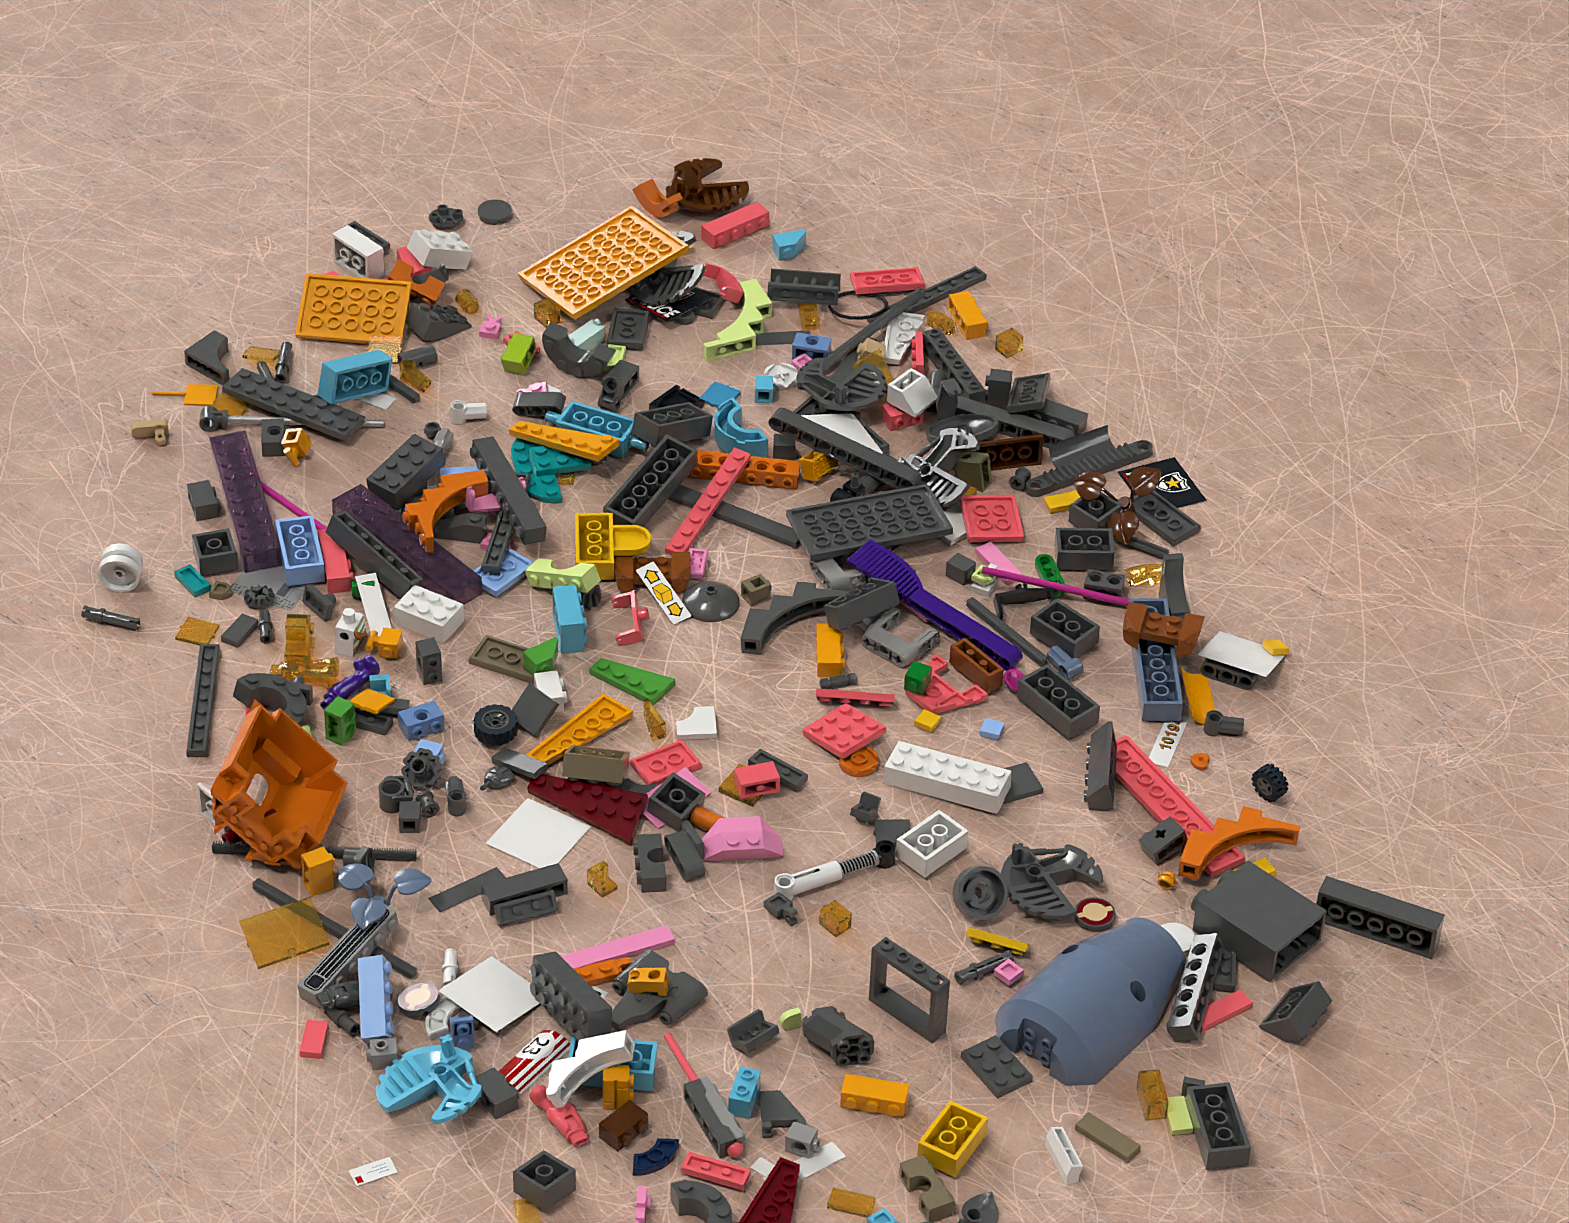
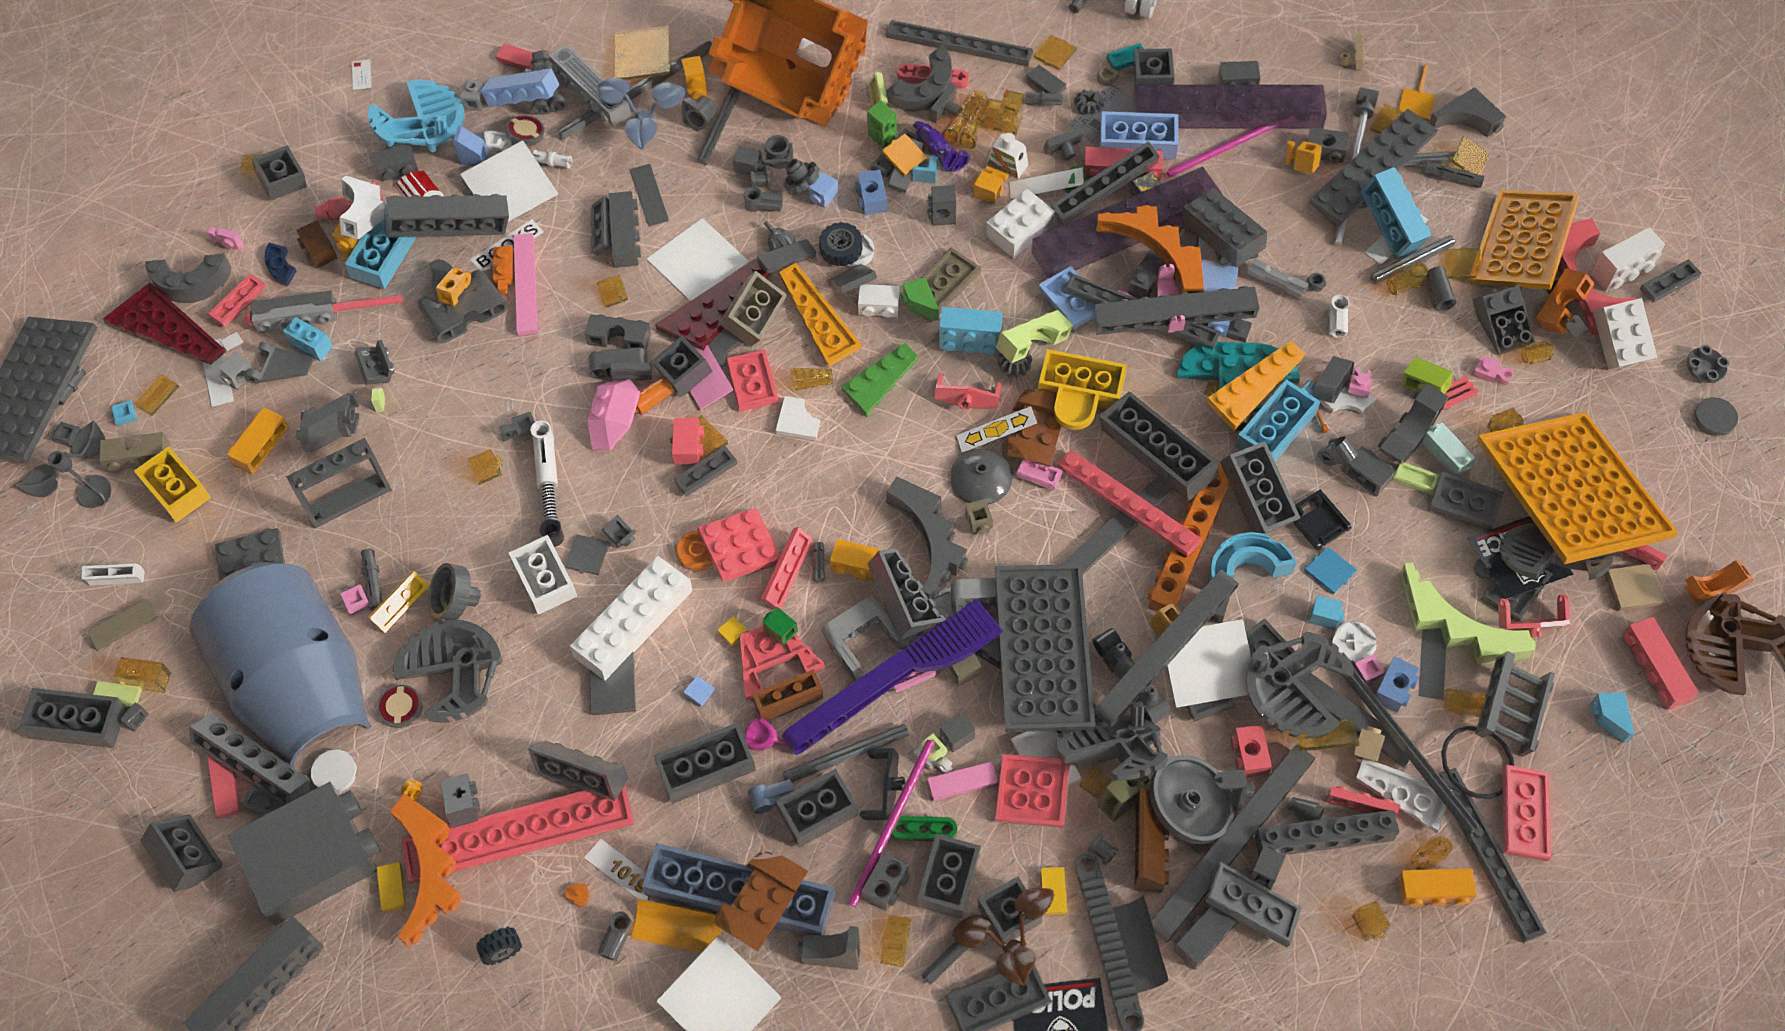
camera: 110 degrees right, 20 degrees up
(911, 393) = (1260, 752): white slope -> none

